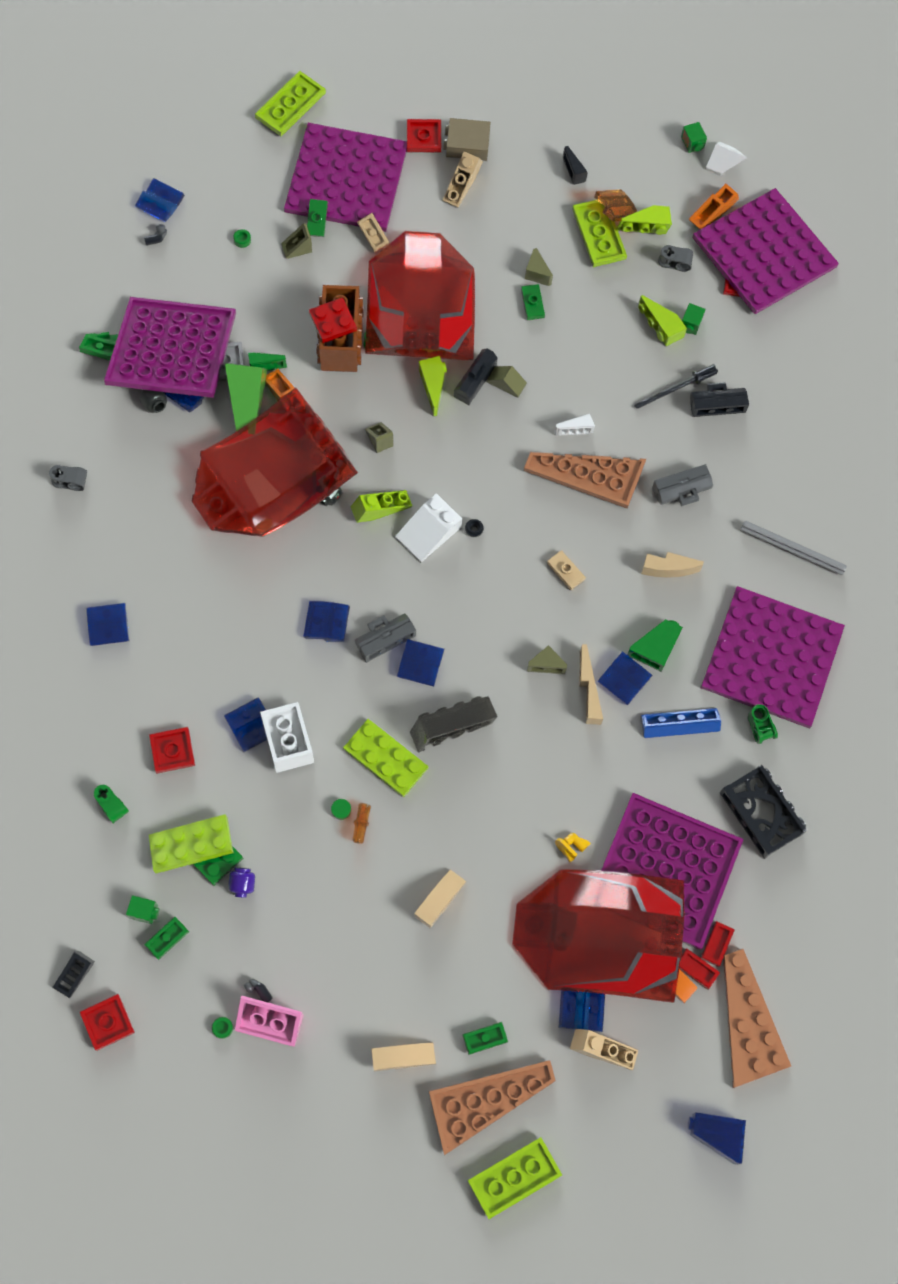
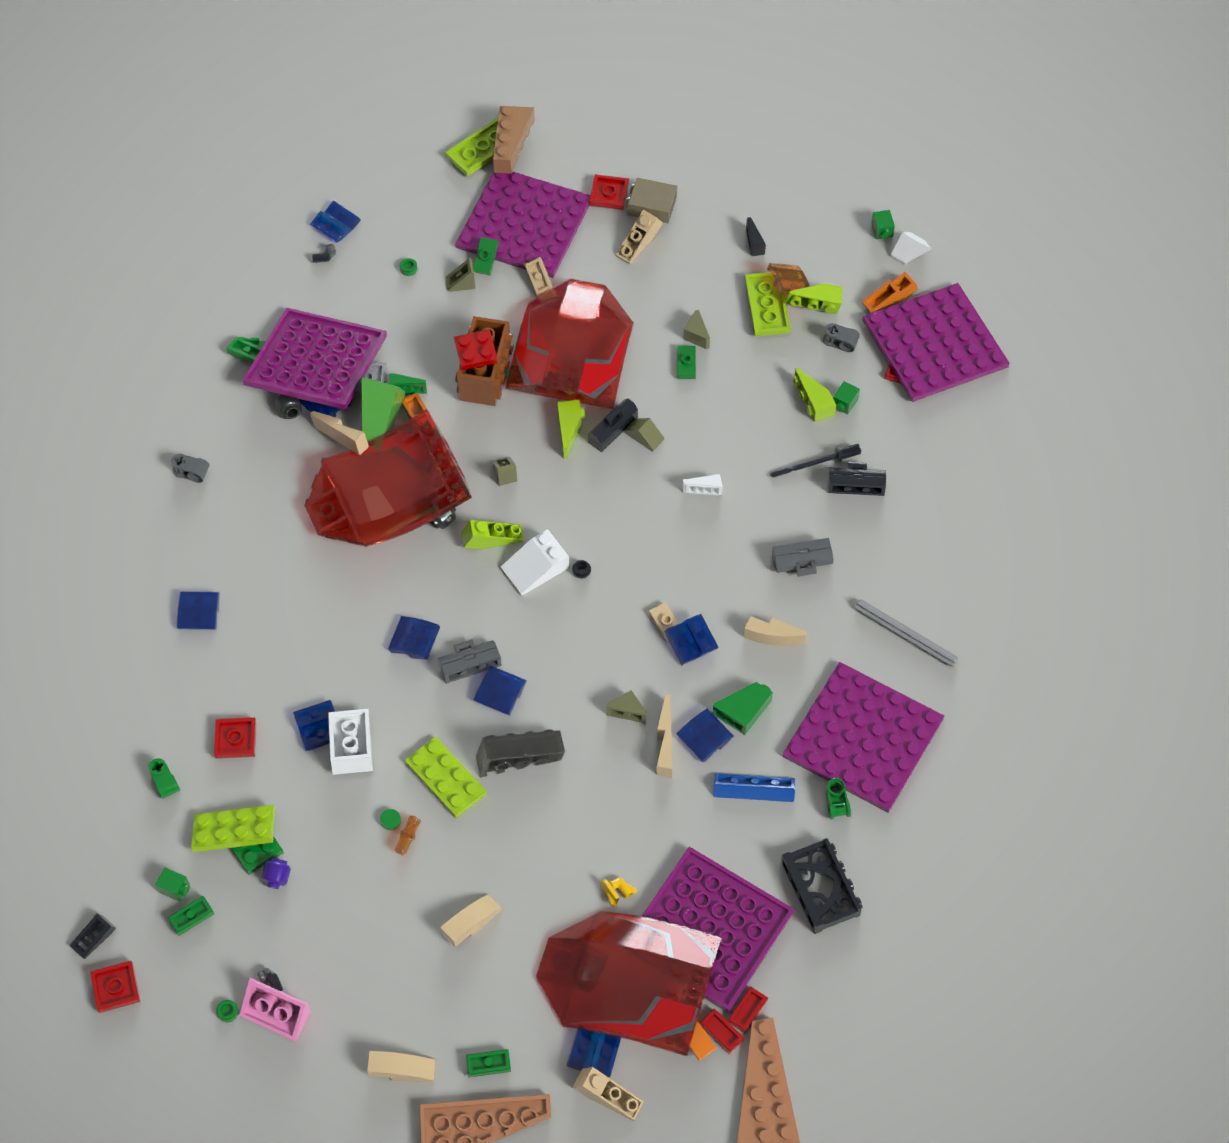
camera: 15 degrees right, 10 degrees down
(204, 417) = (332, 427): none -> tan slope
(318, 86) = (512, 130): none -> medium nougat wedge
(593, 584) = (691, 639): none -> clear blue slope
(594, 475) = (712, 534): nougat wing -> none

